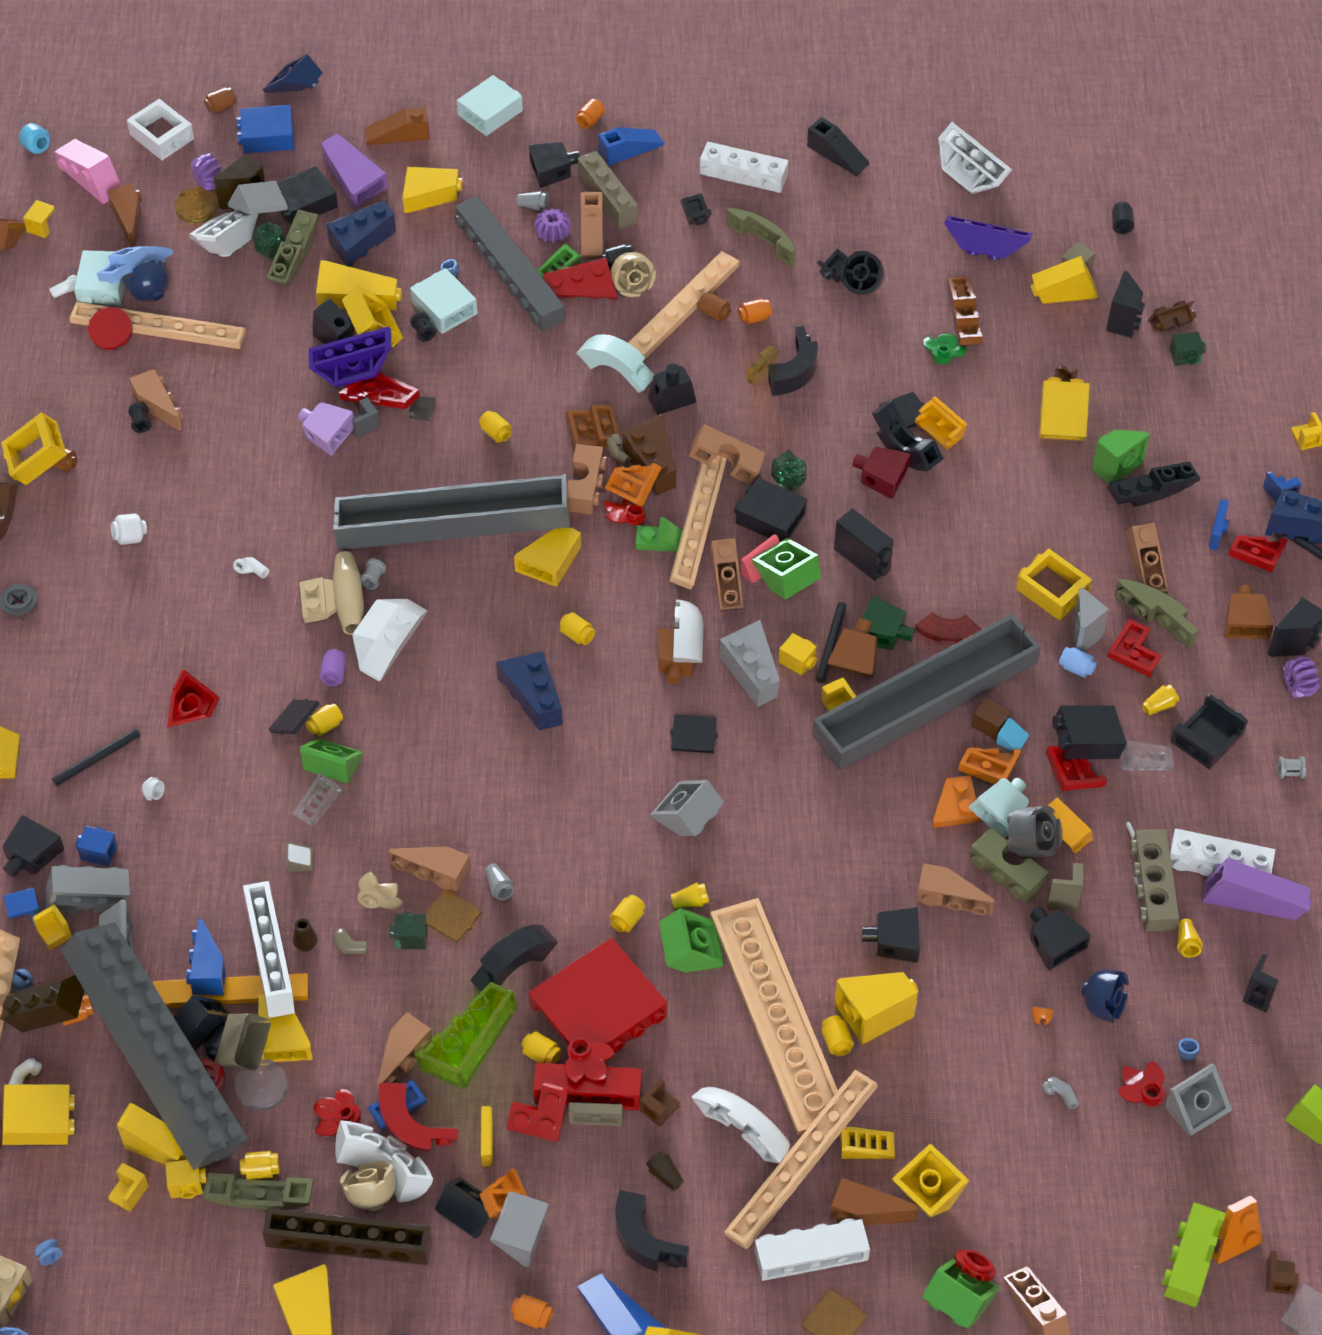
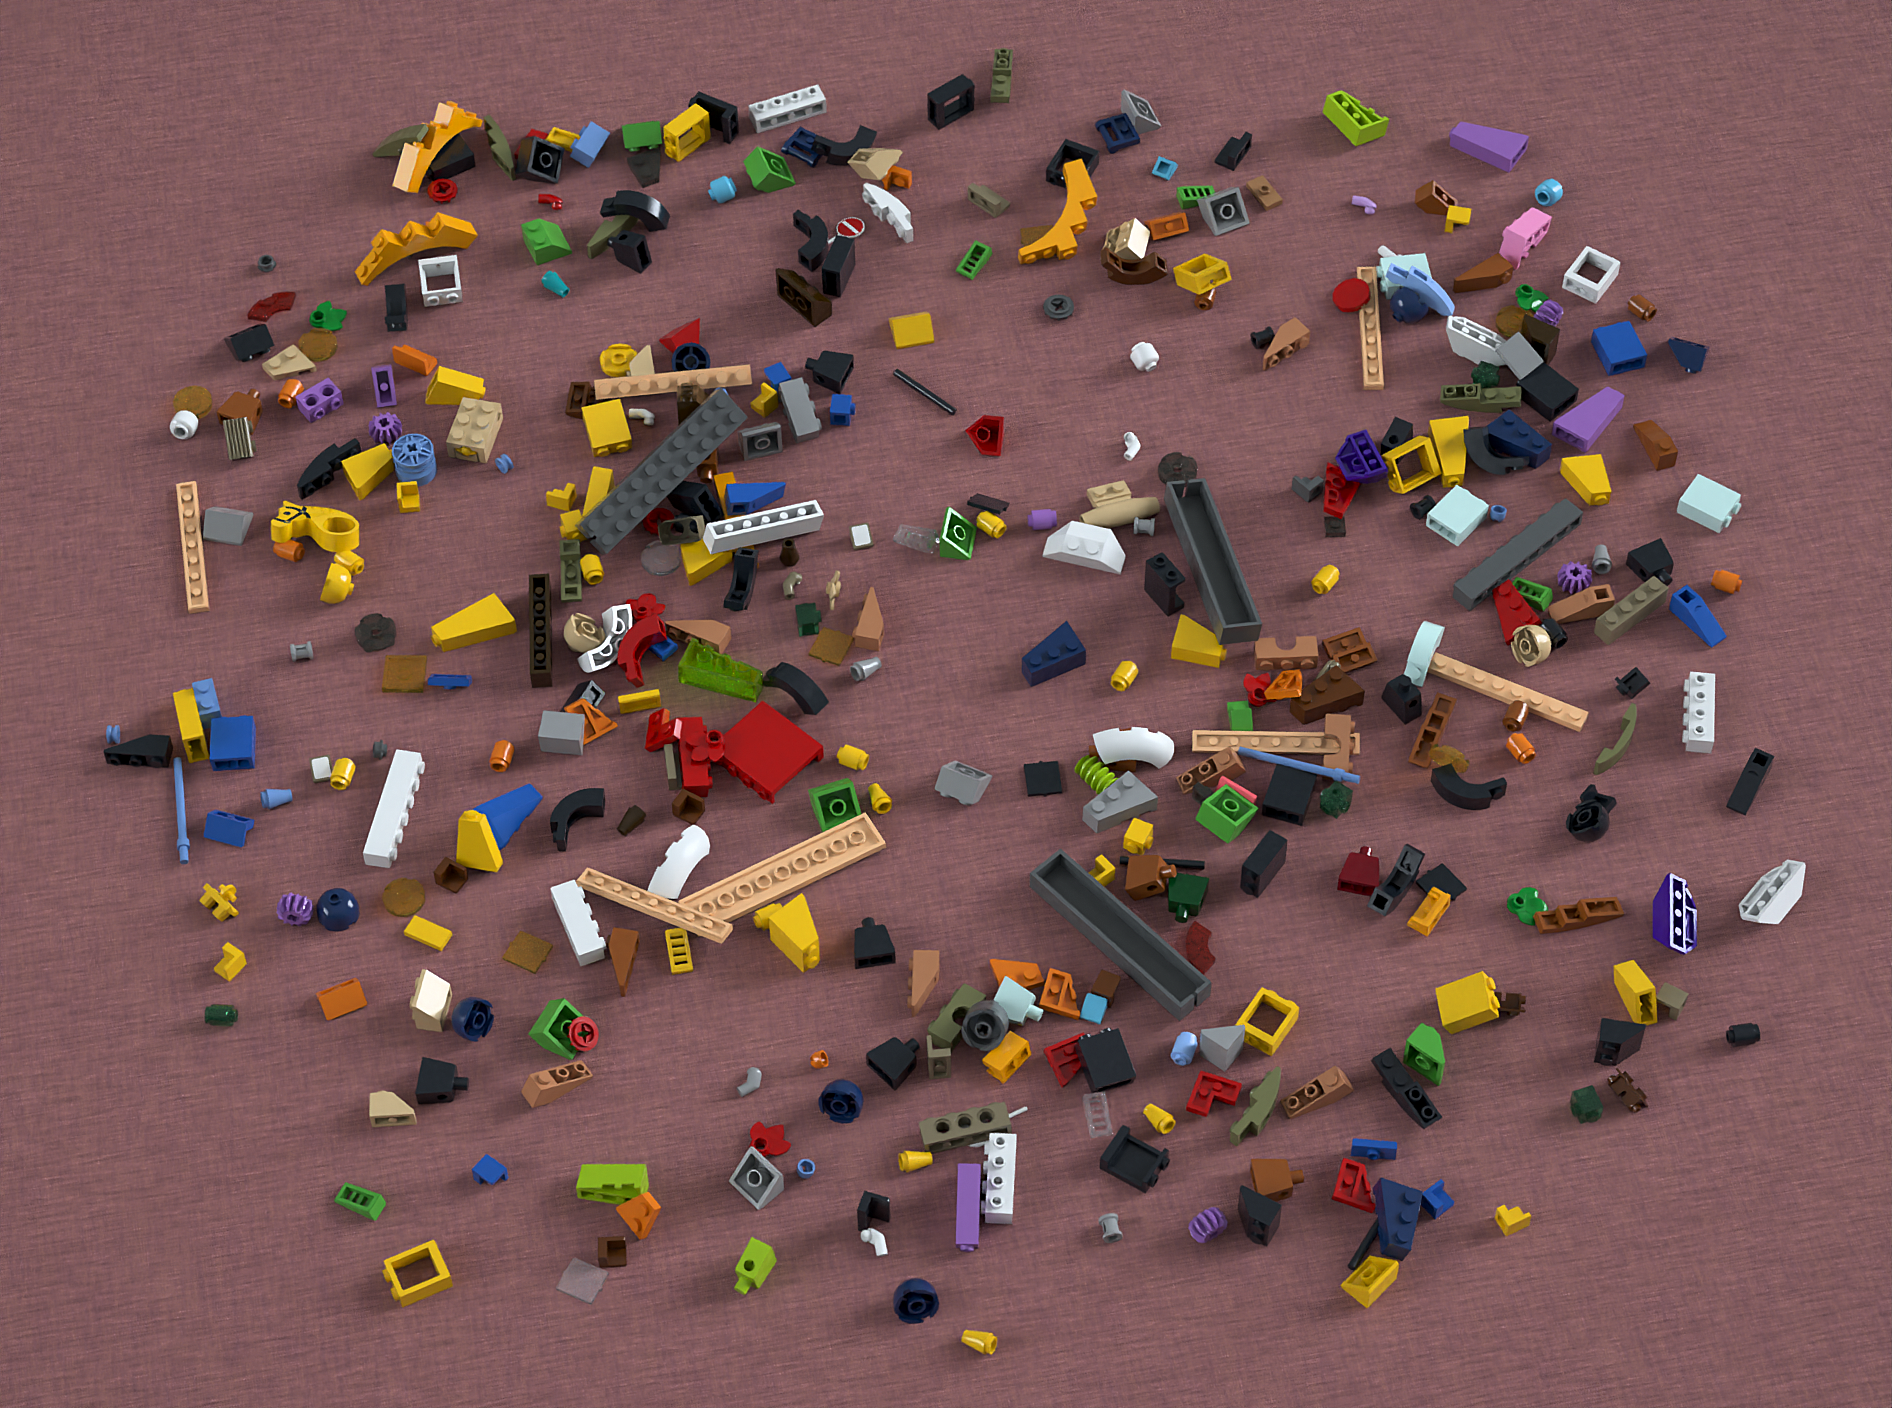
camera: 80 degrees right, 0 degrees up
(153, 788) = (902, 432): white plate -> none
(171, 185) = (1530, 298): none -> green plate
(301, 540) = (1177, 460): none -> clear smoke plate
(327, 426) = (1287, 461): lavender torso -> none
(336, 994) = (743, 580): none -> black arch
(385, 256) = (1483, 454): none -> black arch
(472, 561) = (1161, 583): none -> black panel
(540, 1048) = (720, 720): yellow brick -> none
(711, 673) = (1094, 773): none -> lime piece
(715, 379) = (1432, 729): none -> dark orange slope
(756, 586) = (1201, 793): none -> clear smoke plate
(765, 458) = (1337, 774): none -> medium blue bar
(931, 1181) = (644, 991): yellow slope -> none
(1287, 990) = (877, 1239): none -> white arm

